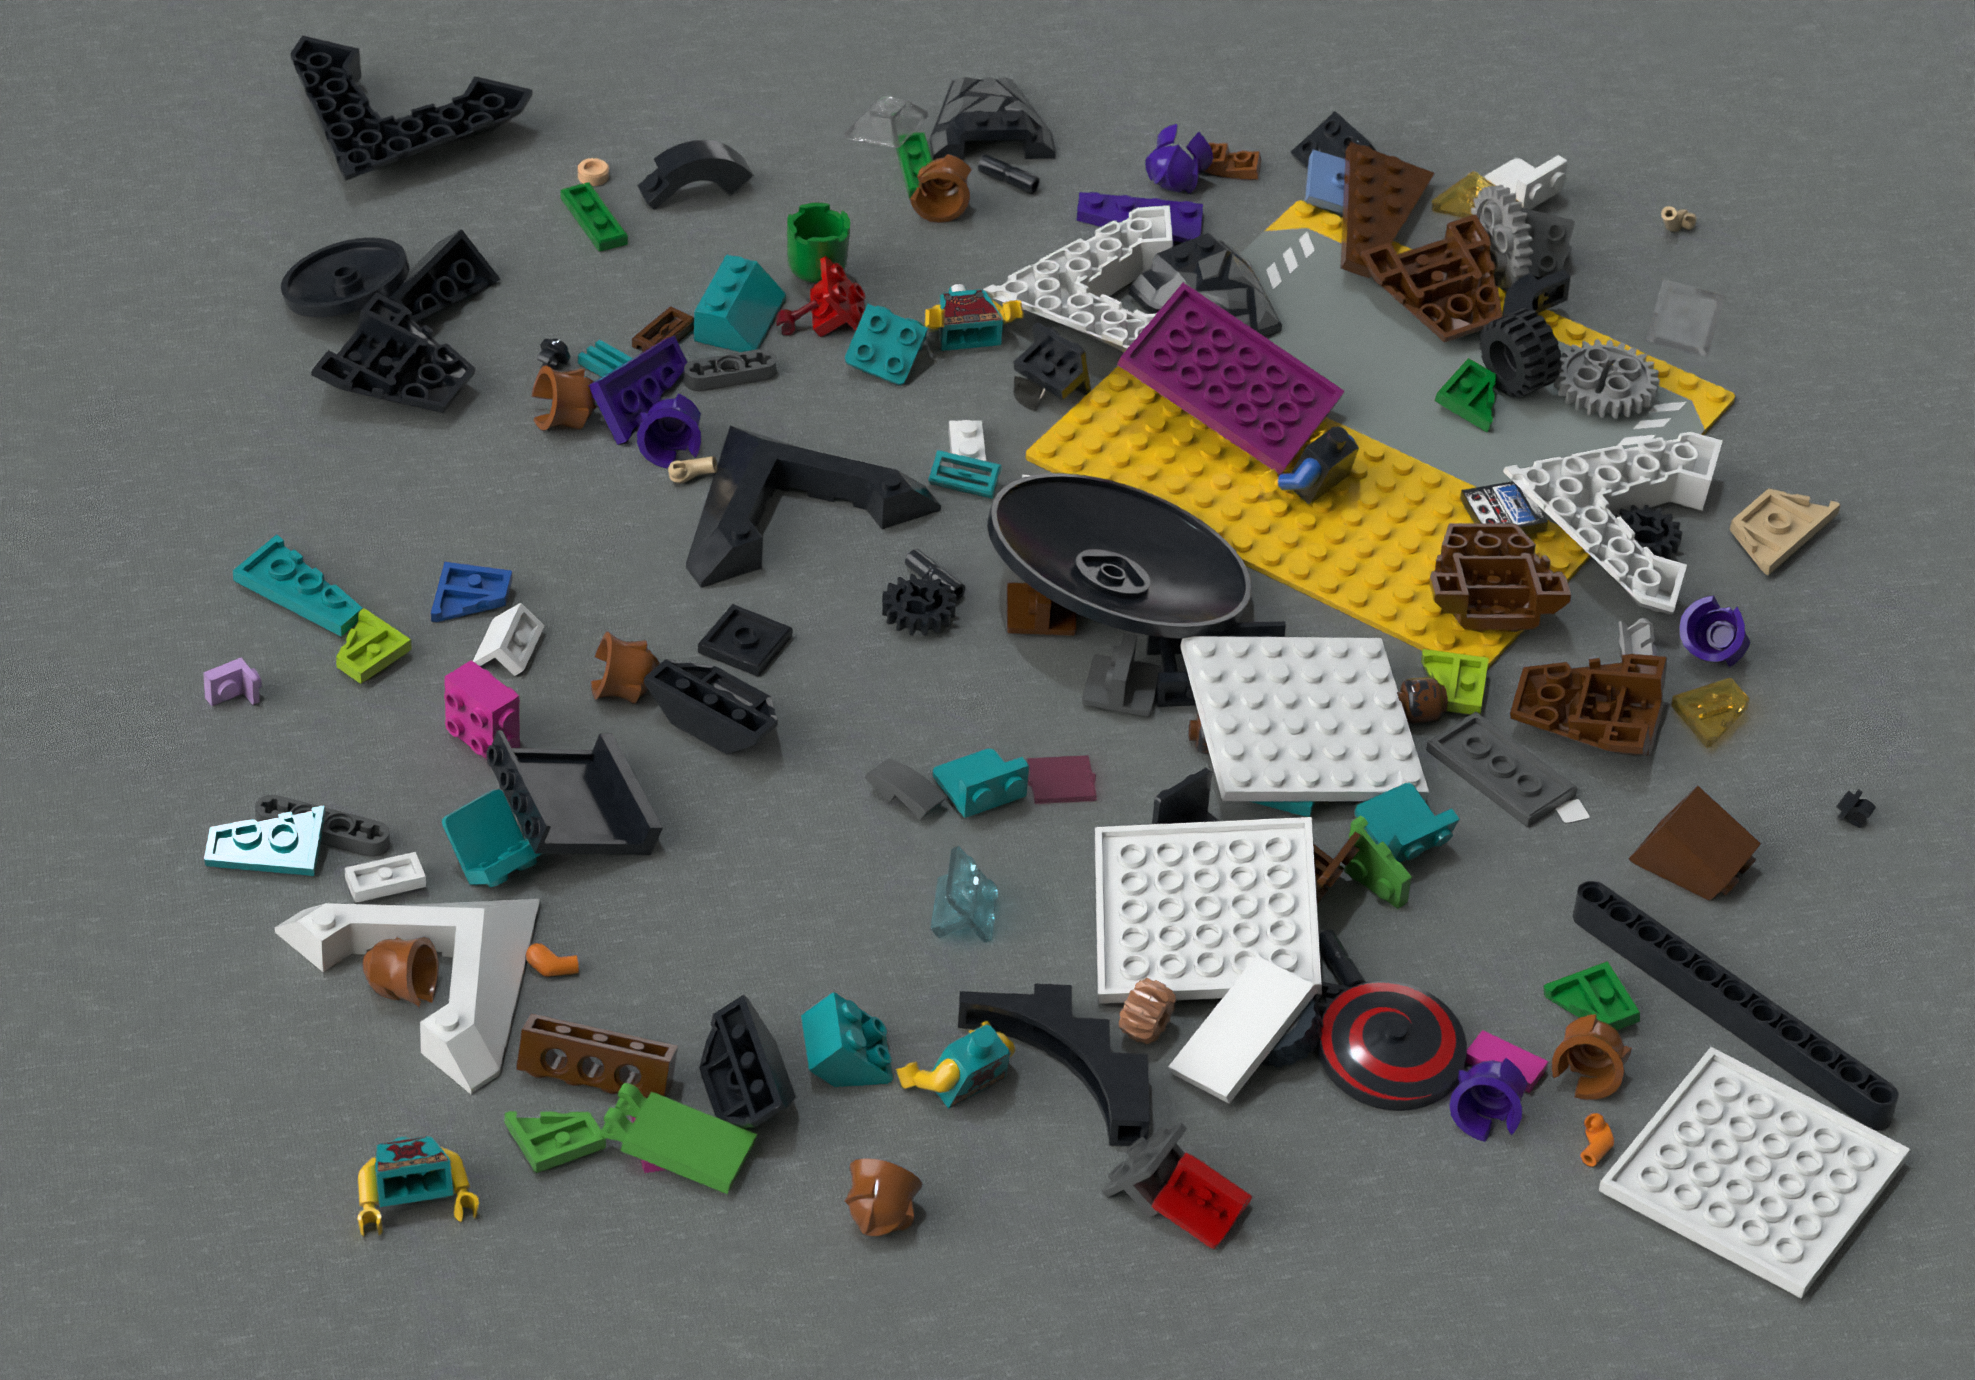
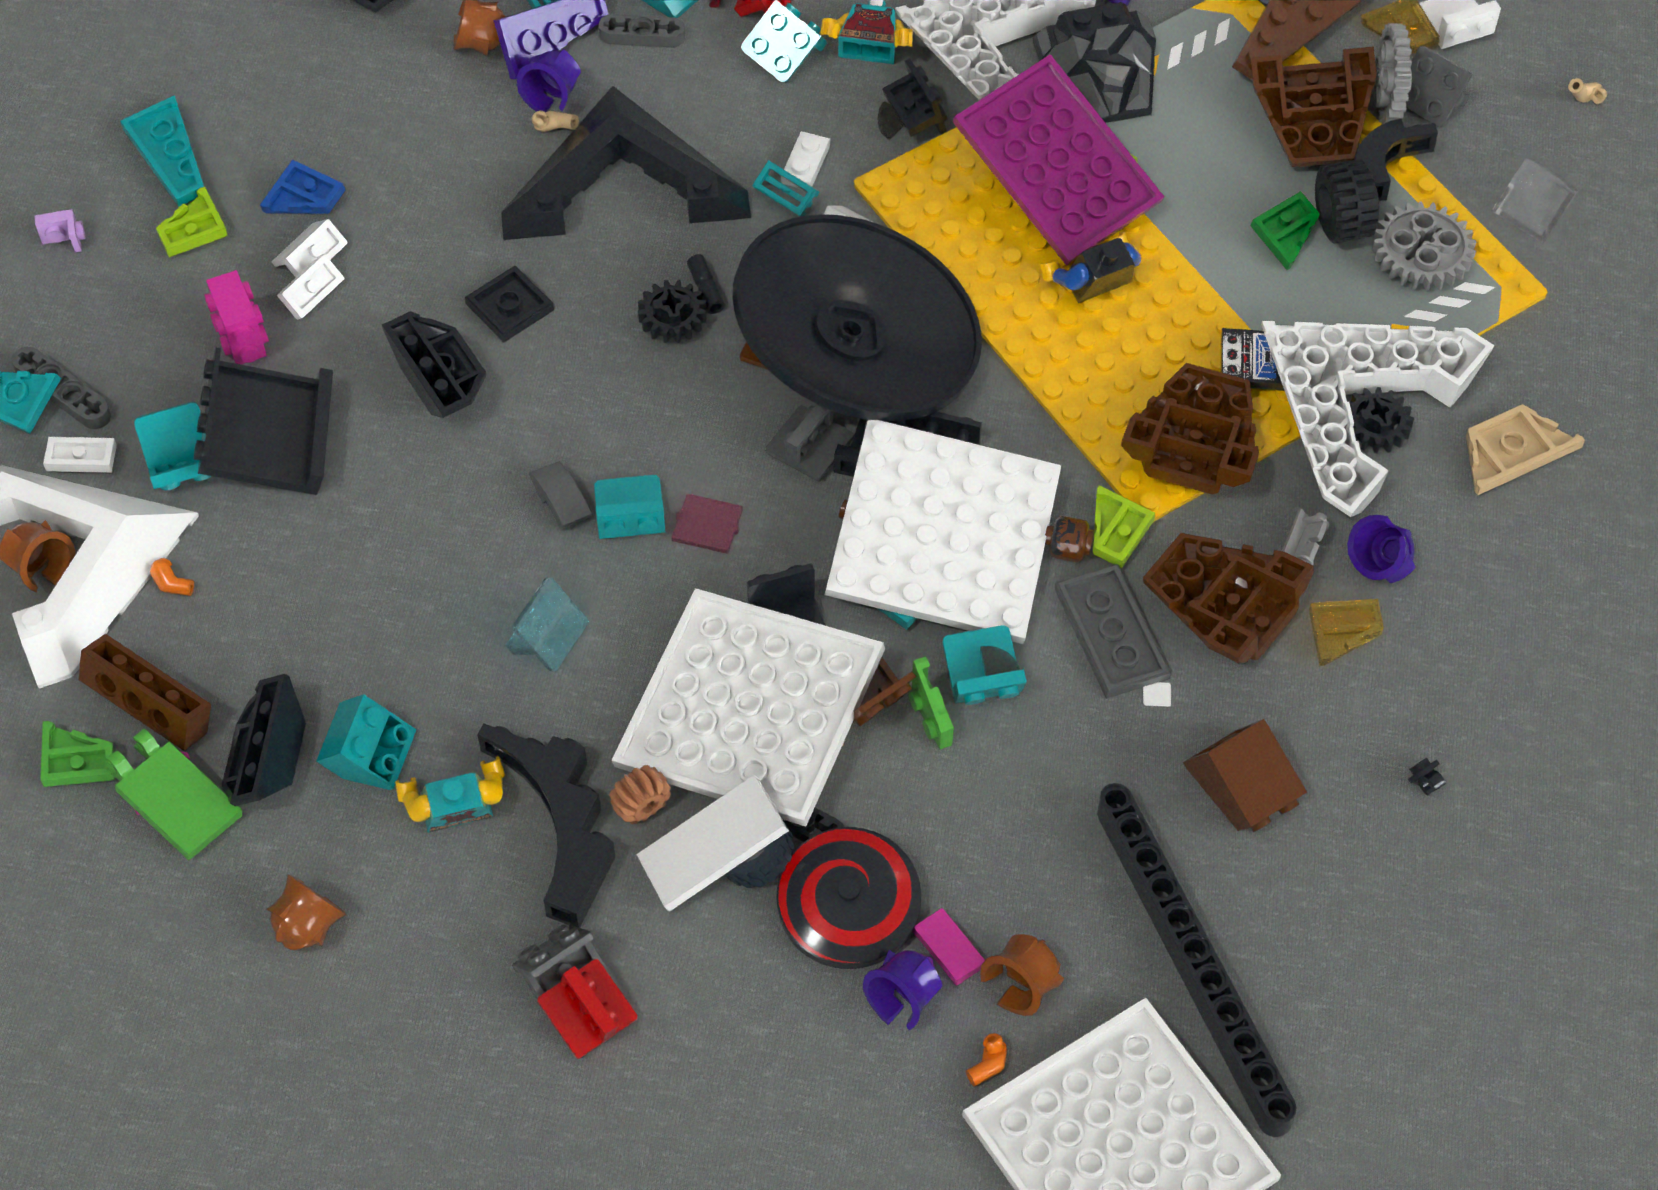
camera: 25 degrees right, 15 degrees up
(534, 671) = (310, 286): none -> white plate
(625, 668) = (379, 304): dark orange helmet -> none
(1339, 959) = (851, 787): black piece -> none
(1415, 812) = (997, 661): none -> clear smoke tile
(1594, 992) = (1067, 906): green wing -> none

